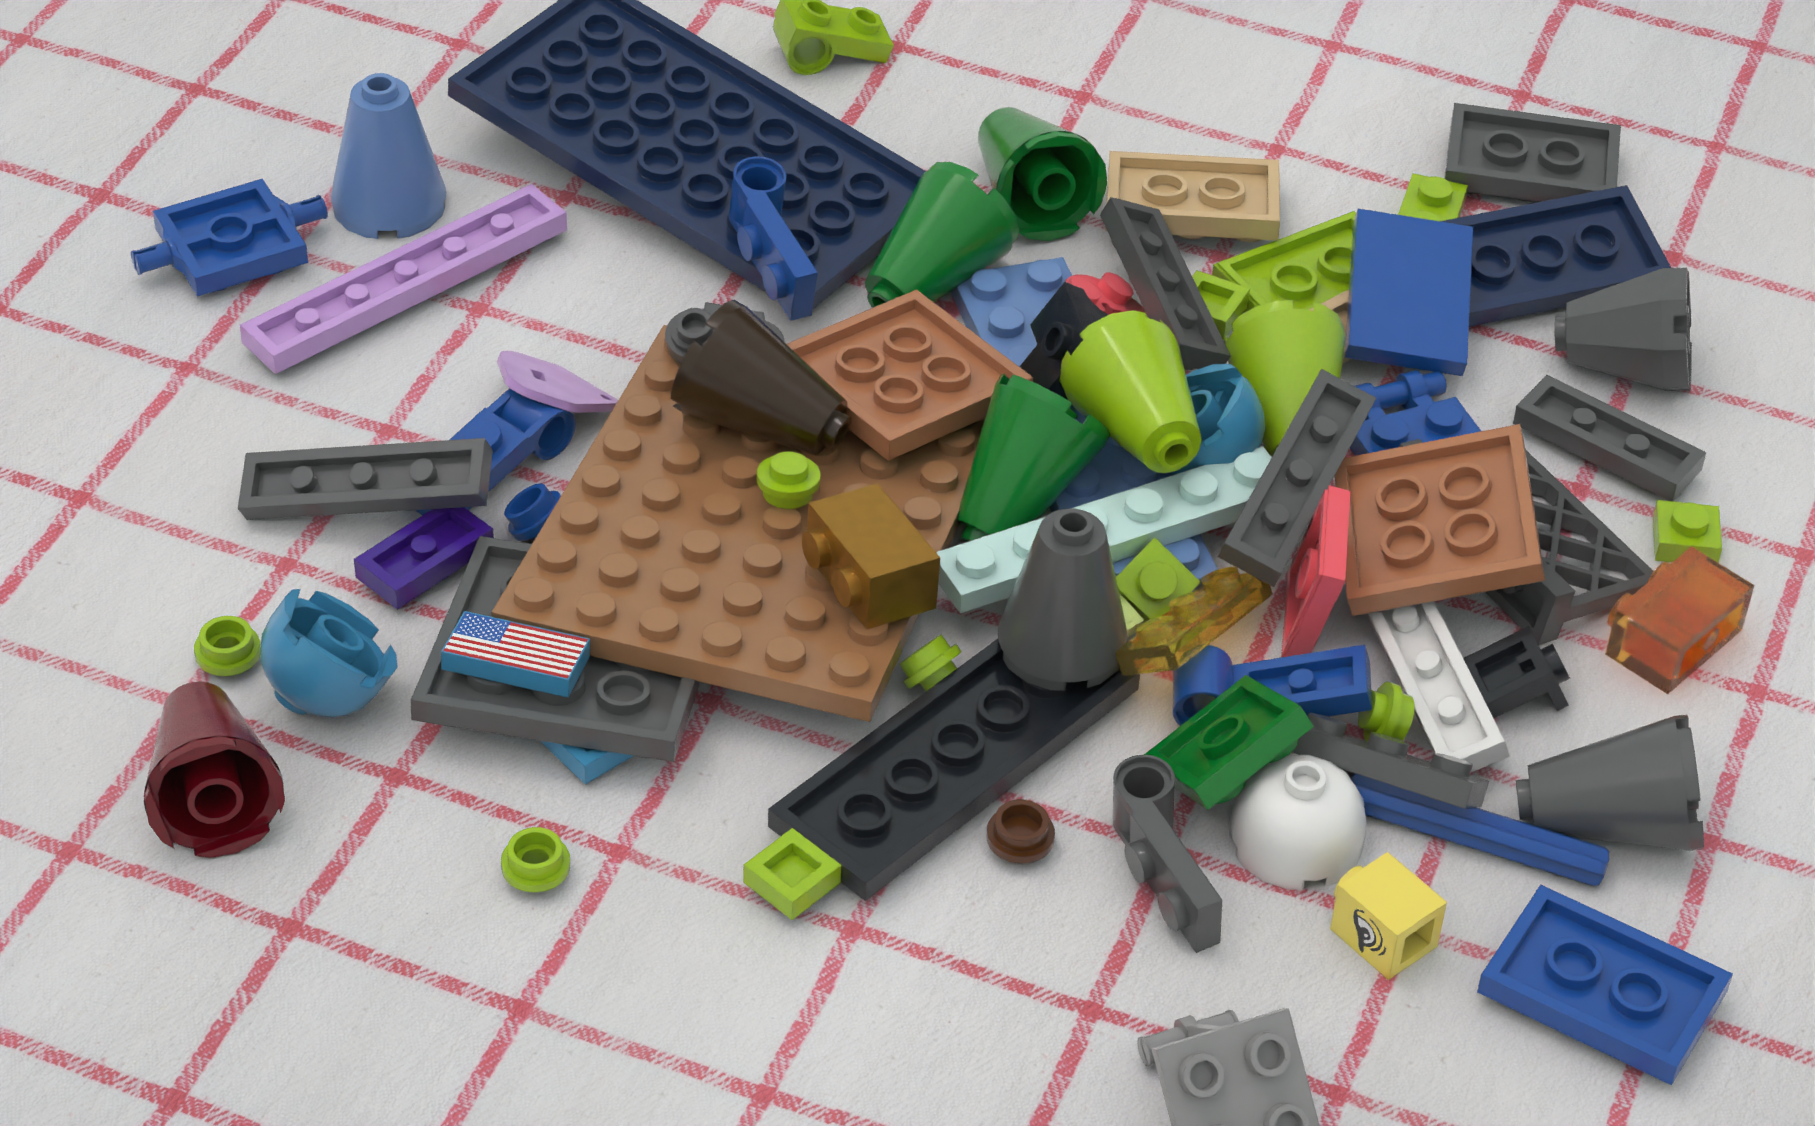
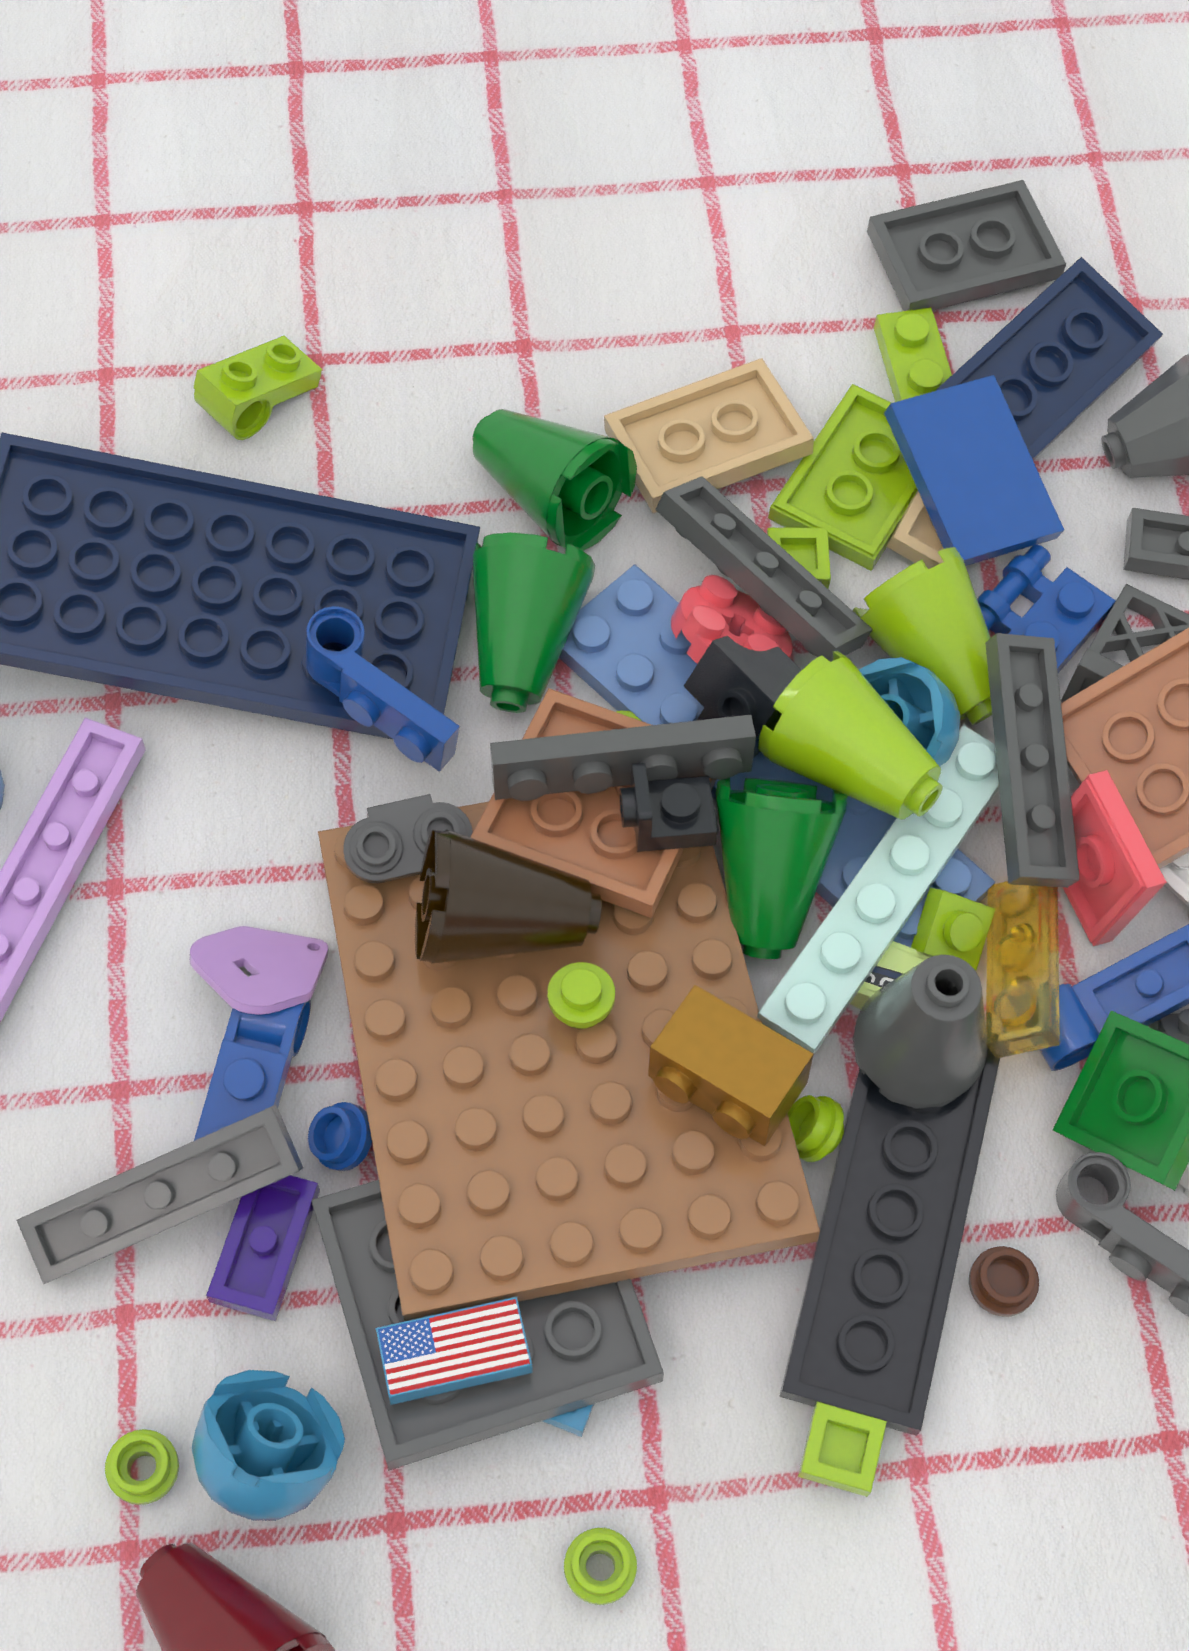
camera: 30 degrees left, 20 degrees up
(932, 332) = (605, 758): none -> dark grey plate
(943, 385) = (668, 811): none -> black bracket

